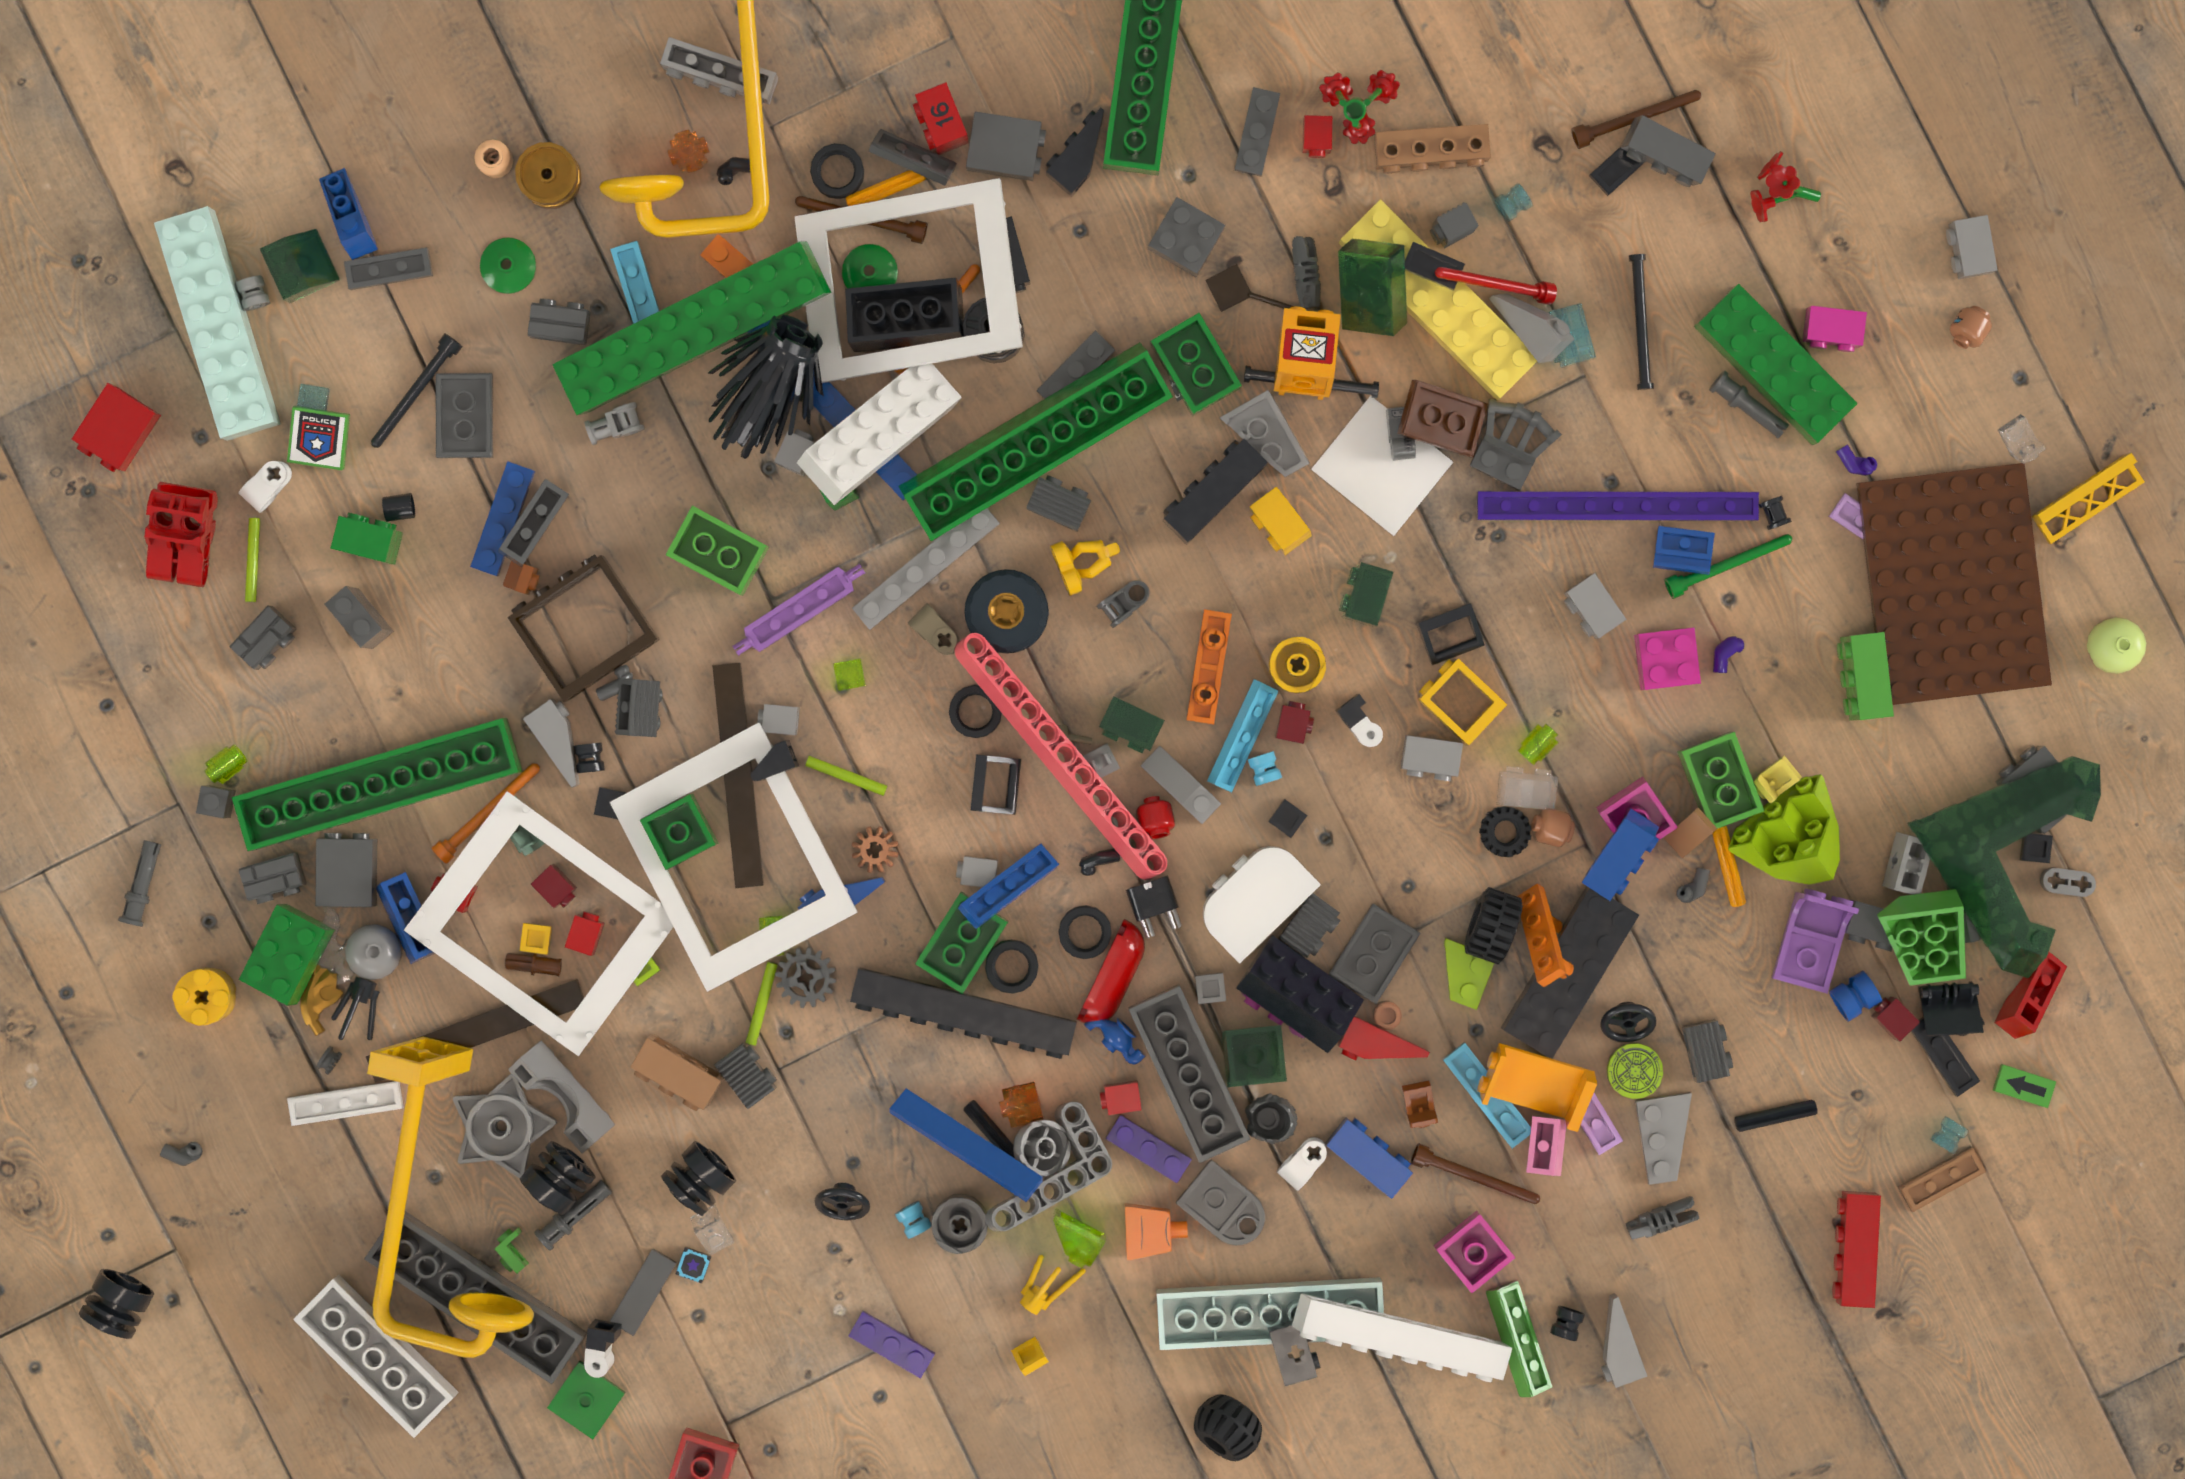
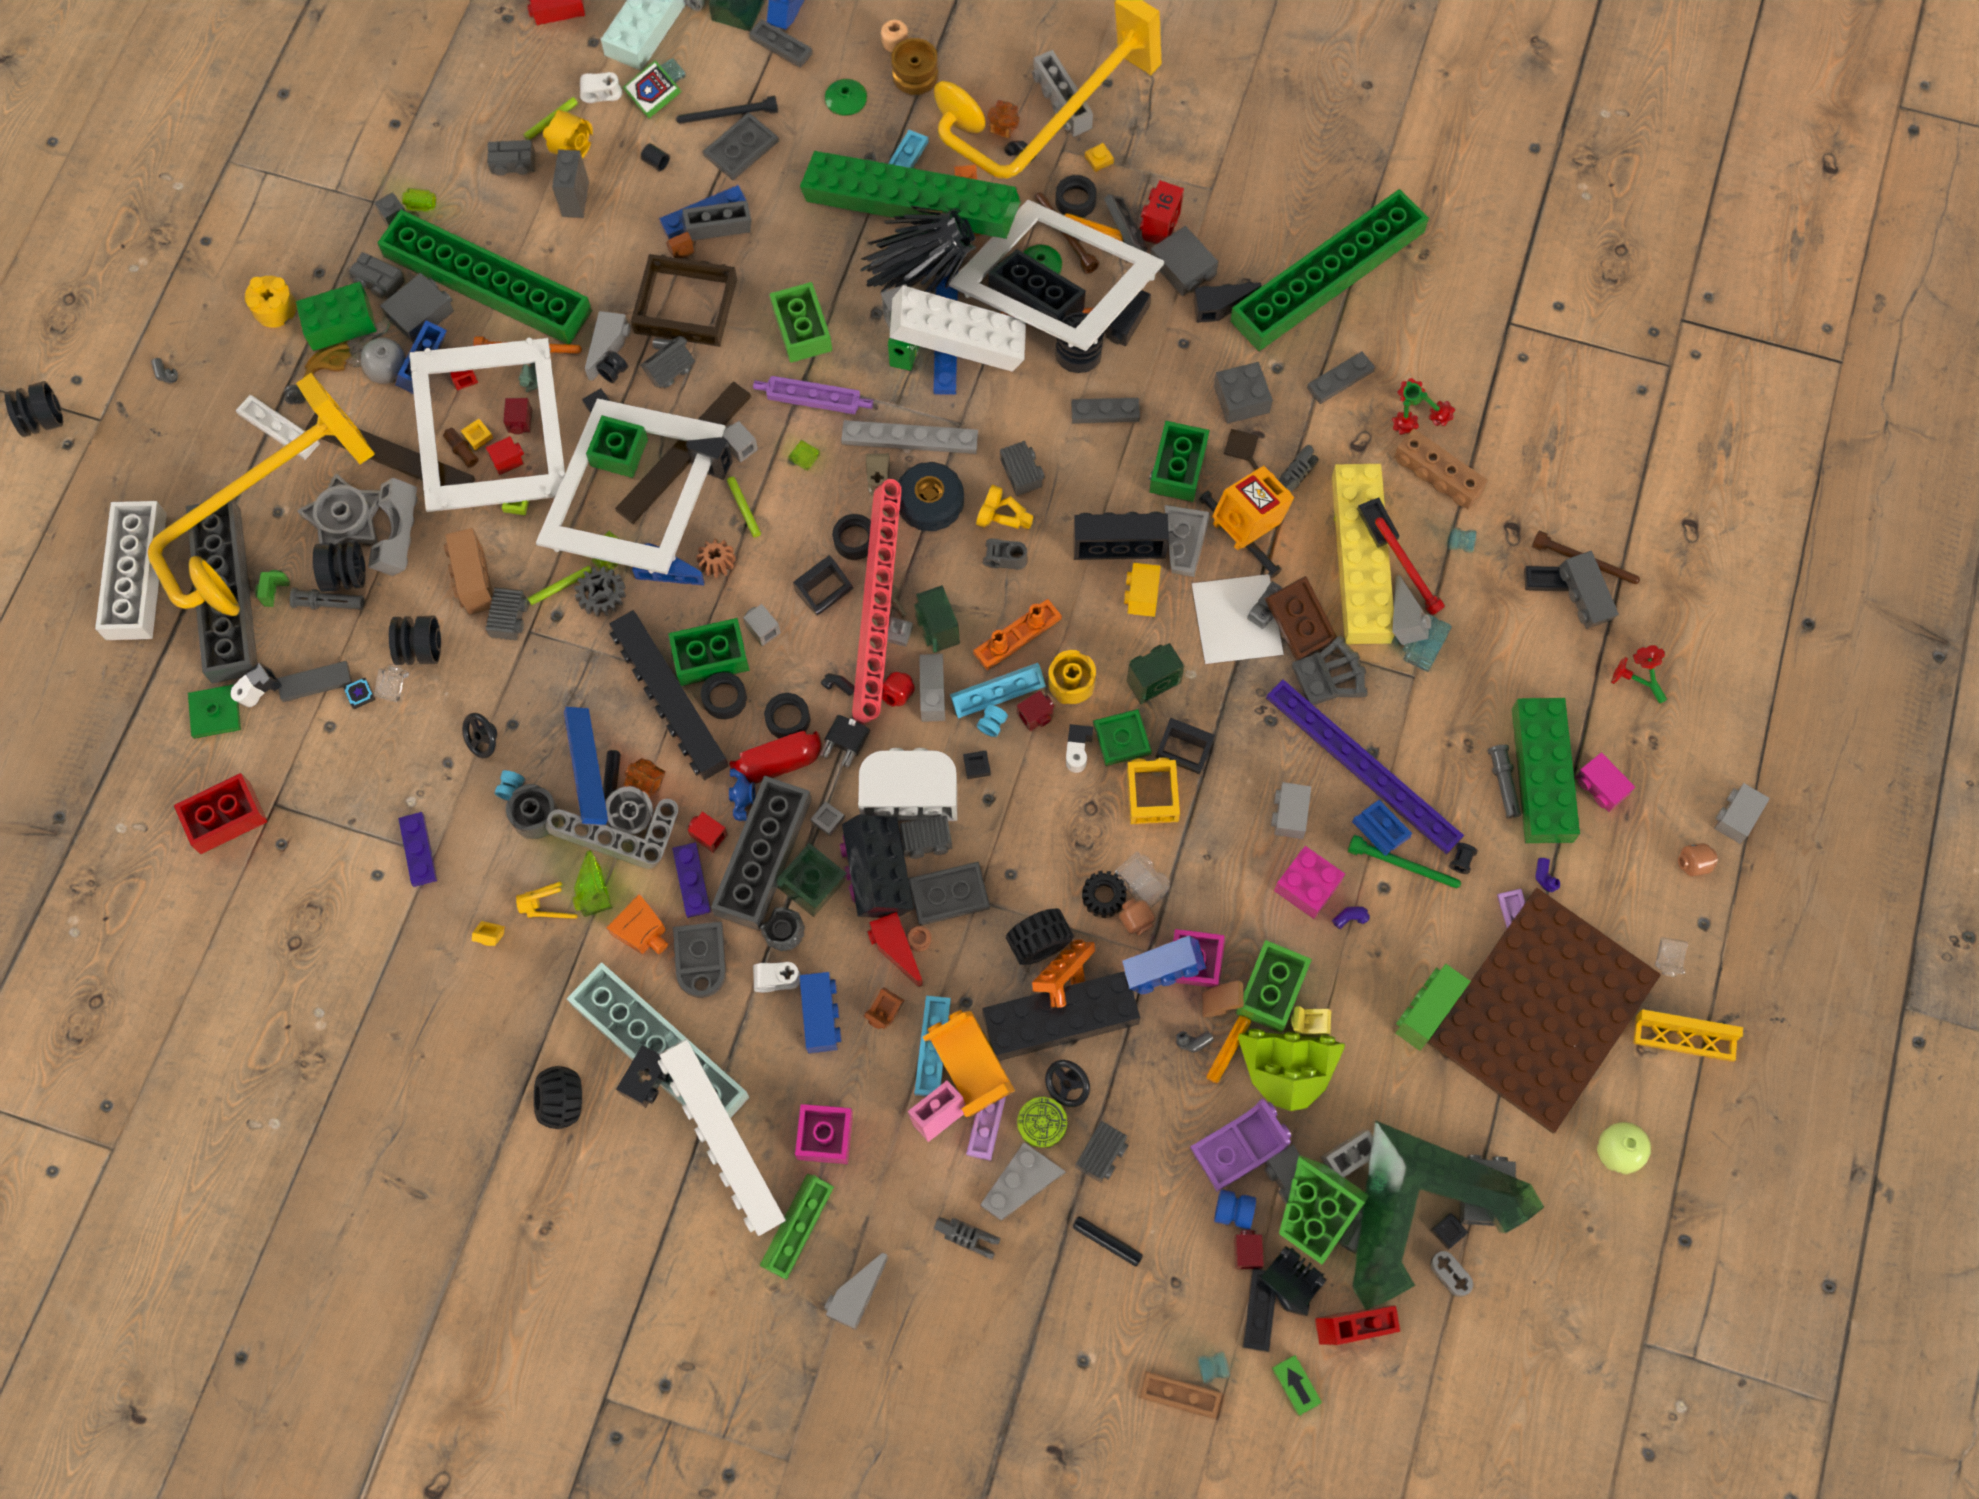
camera: 50 degrees right, 20 degrees down
(137, 896) = (297, 223): dark grey pin -> none
(176, 542) = (527, 68): red connector -> none
(298, 568) = (568, 133): none -> yellow brick
(359, 991) = (353, 376): black plant -> none
(367, 540) = (619, 152): green brick -> none
(558, 322) = (840, 140): dark grey brick -> none
(616, 424) = (818, 216): light grey connector -> none
(815, 104) = (1099, 157): none -> yellow plate
(1008, 886) = (769, 641): blue plate -> none
(1035, 441) = (1042, 418): green brick -> none
(1317, 135) = (1376, 405): red brick -> none
(1372, 287) = (1329, 502): clear green brick -> none
(1388, 676) = (1122, 737): none -> green plate
(1424, 1157) = (853, 1046): reddish brown piece -> none
(1431, 756) = (1101, 806): light grey brick -> none
(1453, 225) = (1412, 516): dark grey brick -> none
(1465, 974) = (993, 960): lime wing -> none
(1538, 743) = (1177, 860): clear neon green brick -> none
(1567, 1323) = (837, 1243): black wheel -> none
(1641, 321) = (1510, 638): black bar -> none
(1857, 1249) = (1078, 1384): red brick -> none

